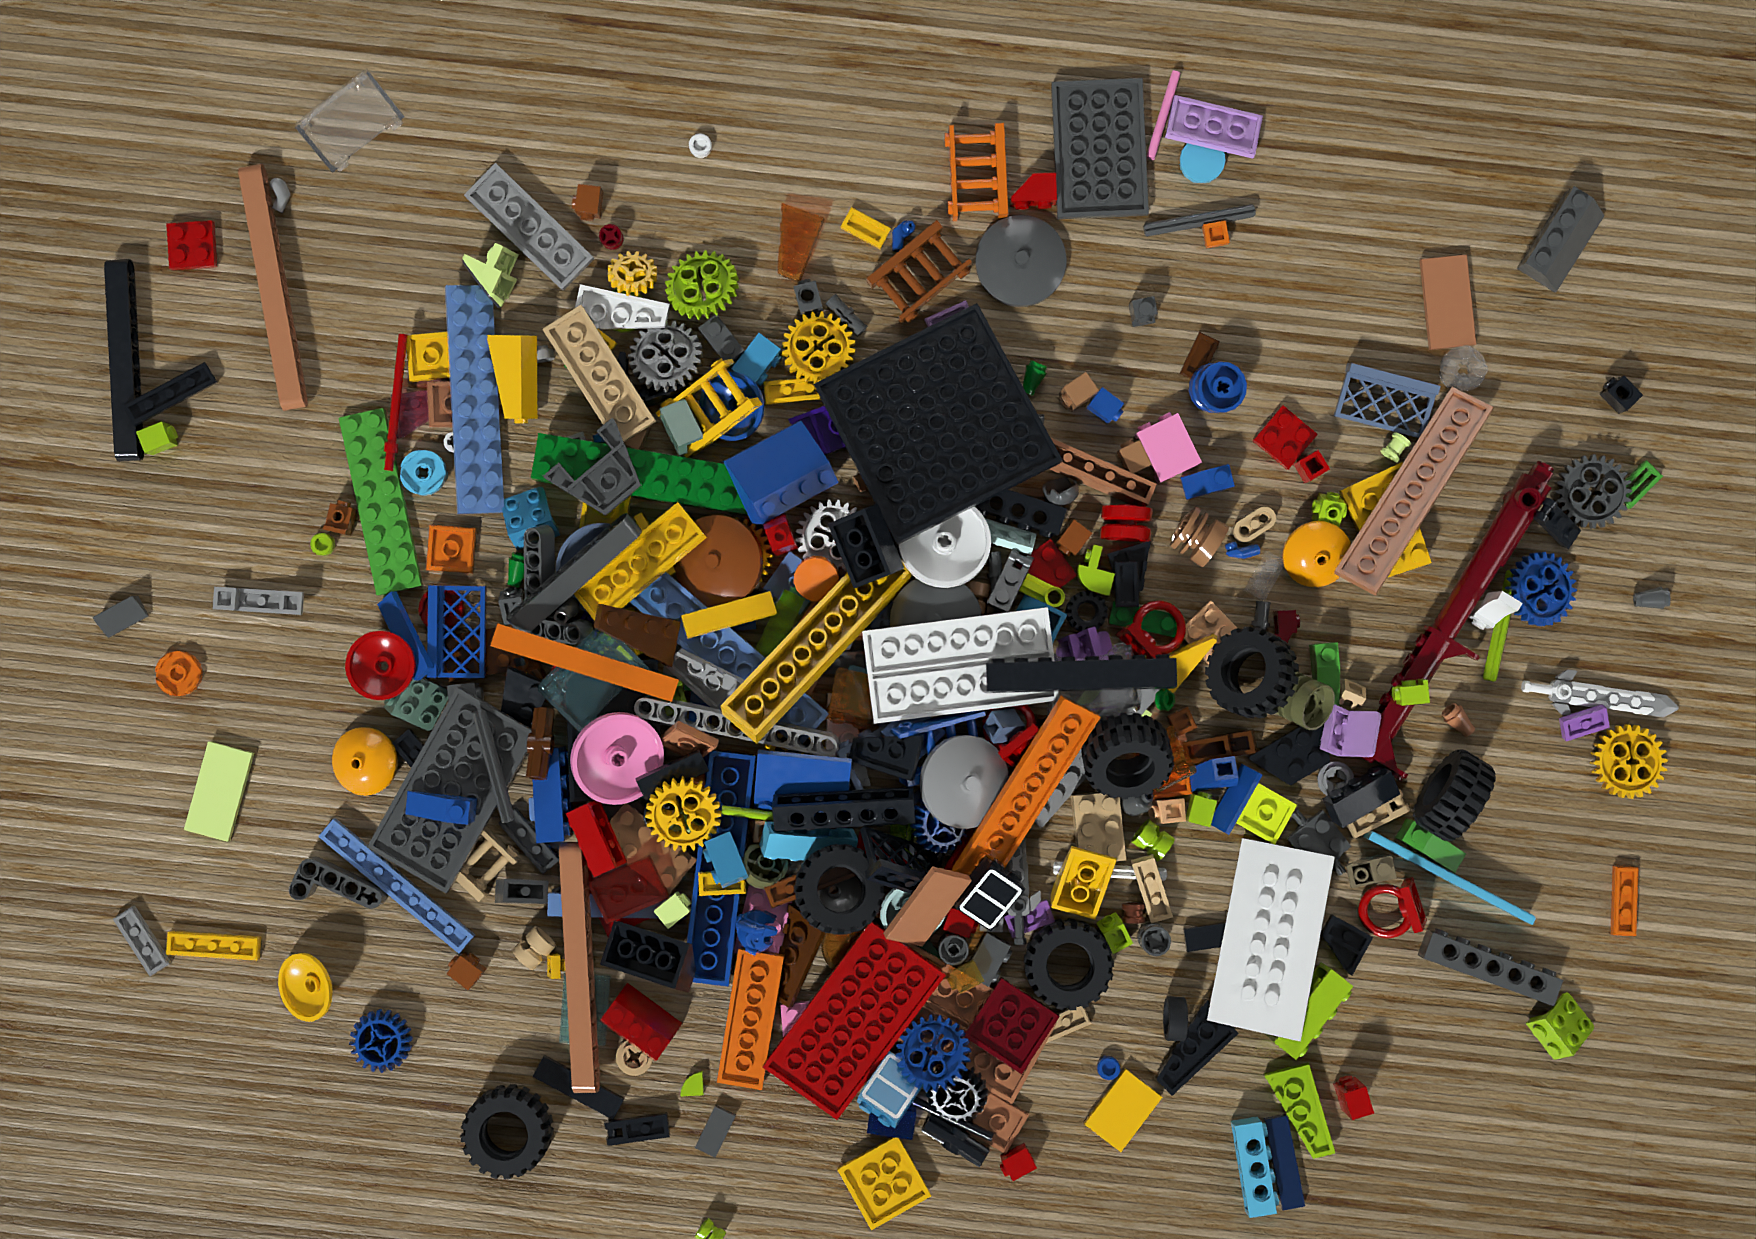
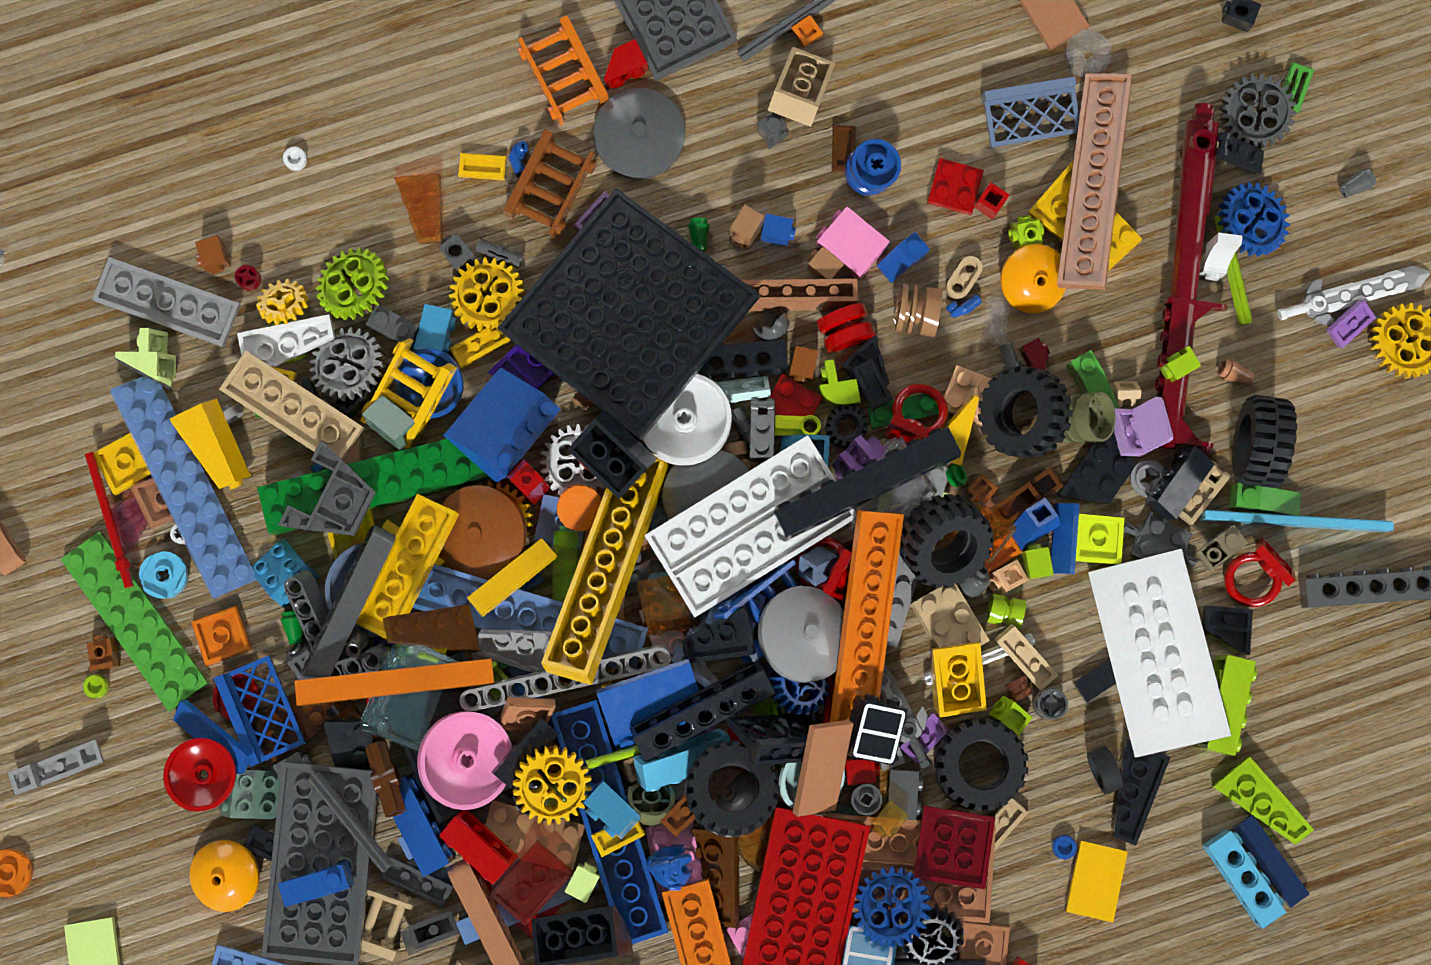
camera: 30 degrees left, 5 degrees down
(1187, 285) = (801, 86): none -> tan brick
(1353, 1097) = (1305, 768): red brick -> none
(1395, 447) = (1060, 150): yellowish green bush -> none

